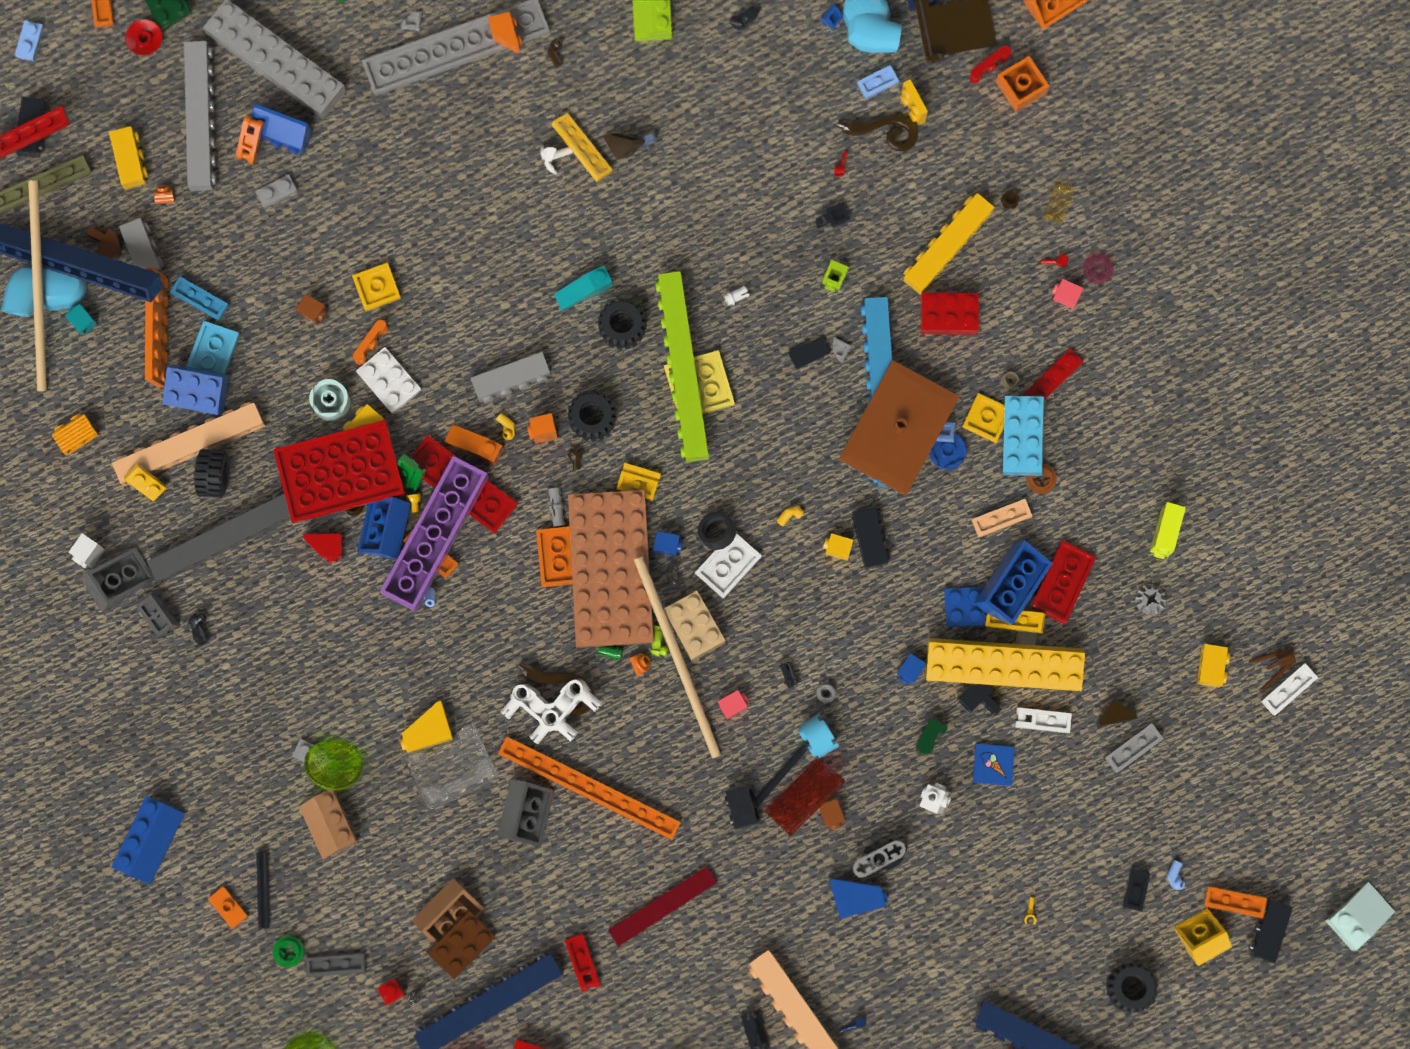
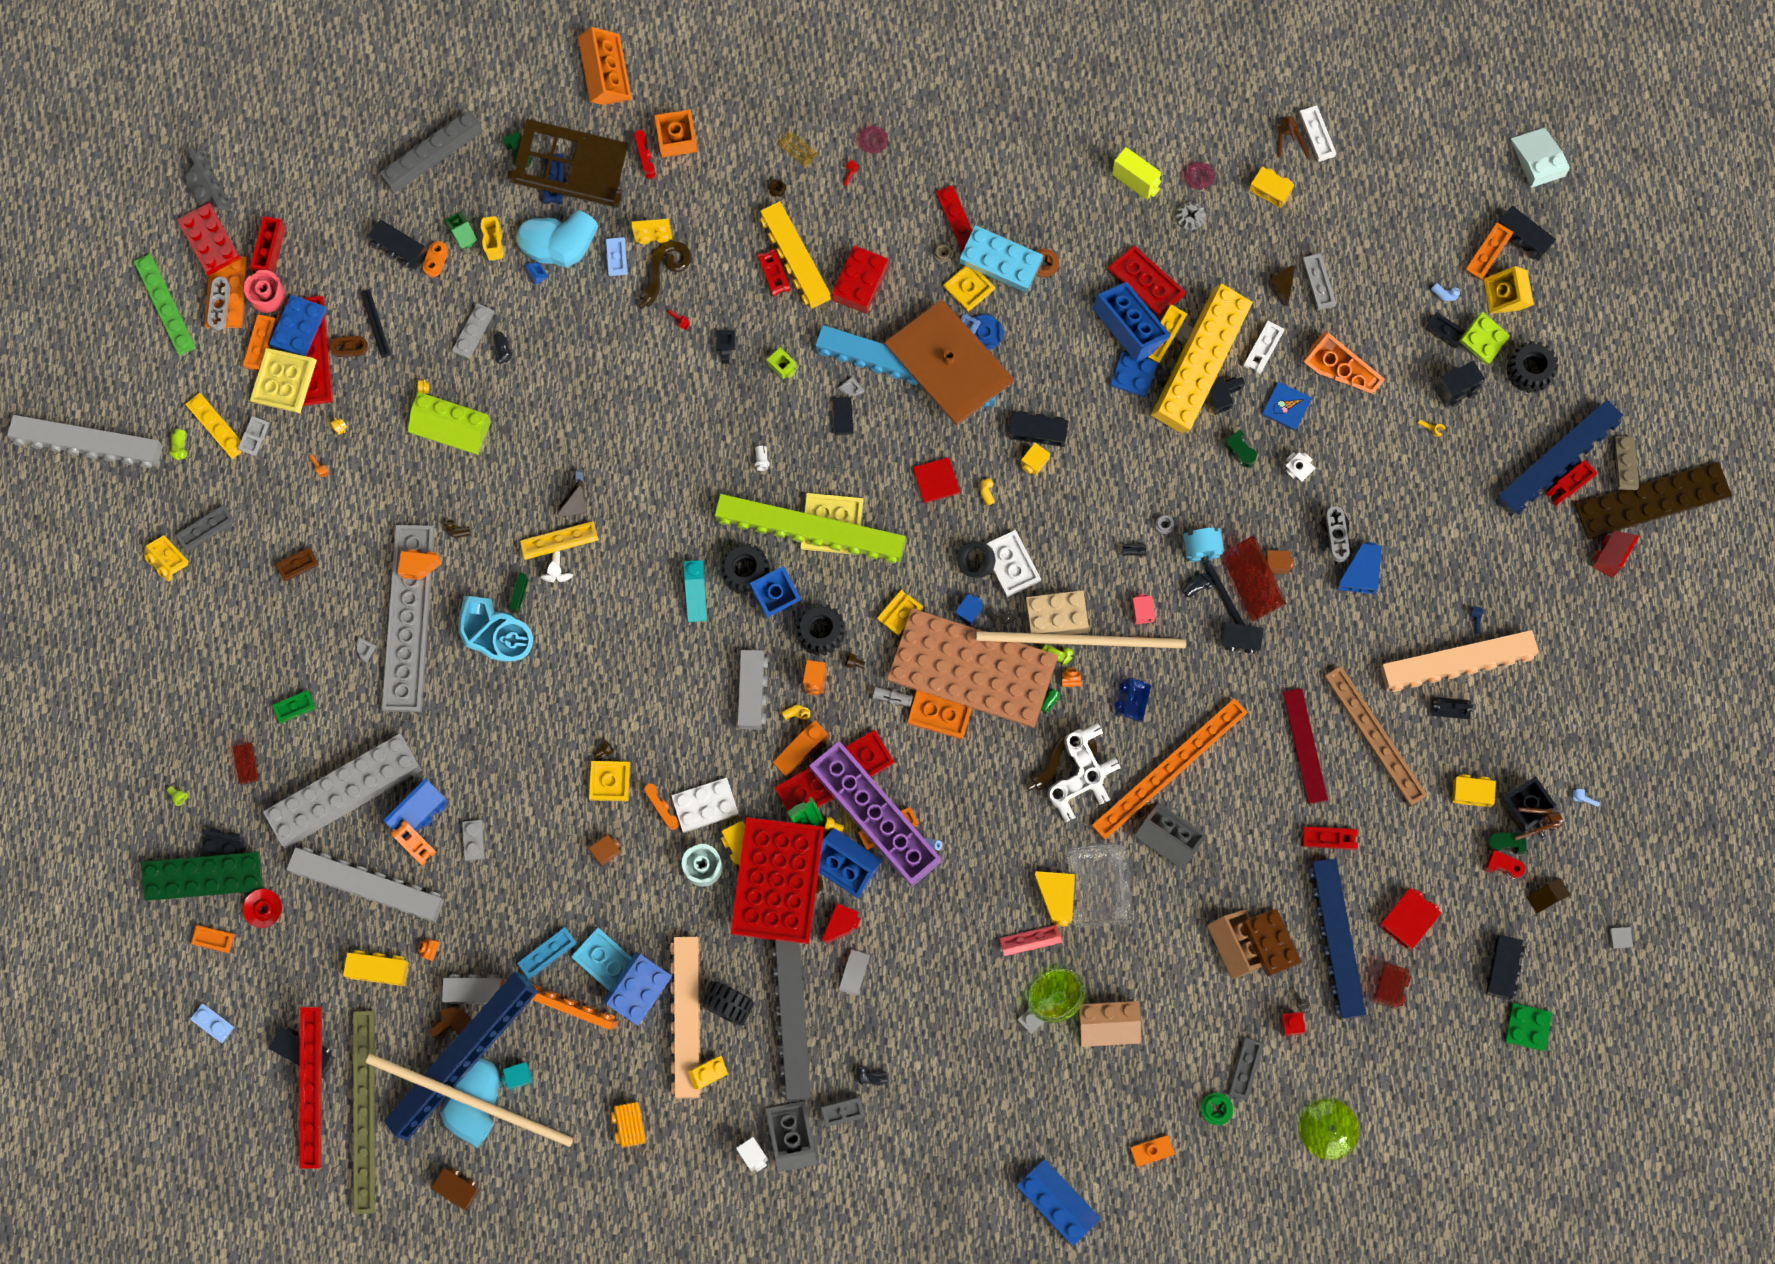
camera: 65 degrees left, 5 degrees down
(262, 889) = (1148, 1111): black axle -> none
(287, 575) = (854, 972): none -> light grey slope
(377, 722) = (1030, 940): none -> coral plate
(404, 269) = (604, 749): none -> dark brown piece
(468, 123) = (492, 632): none -> medium azure piece
(517, 133) = (518, 593): none -> dark green tile
(608, 359) = (774, 592): none -> blue slope
(641, 728) = (1132, 699): none -> clear blue bracket
(698, 969) = (1375, 736): none -> medium nougat plate
(778, 746) = (1196, 585): none -> black arm
(782, 464) = (936, 480): none -> red tile
(911, 669) = (1173, 441): blue brick -> none
(924, 231) = (774, 272): none -> red plate
(1001, 518) = (1066, 310): light nougat plate -> none
(1058, 795) = (1337, 362): none -> orange wedge
(1067, 293) = (885, 173): coral brick -> none
(1081, 922) = (1459, 384): none -> black brick
(1143, 930) = (1484, 338): none -> lime plate
(1198, 584) = (1206, 171): none -> clear pink gear

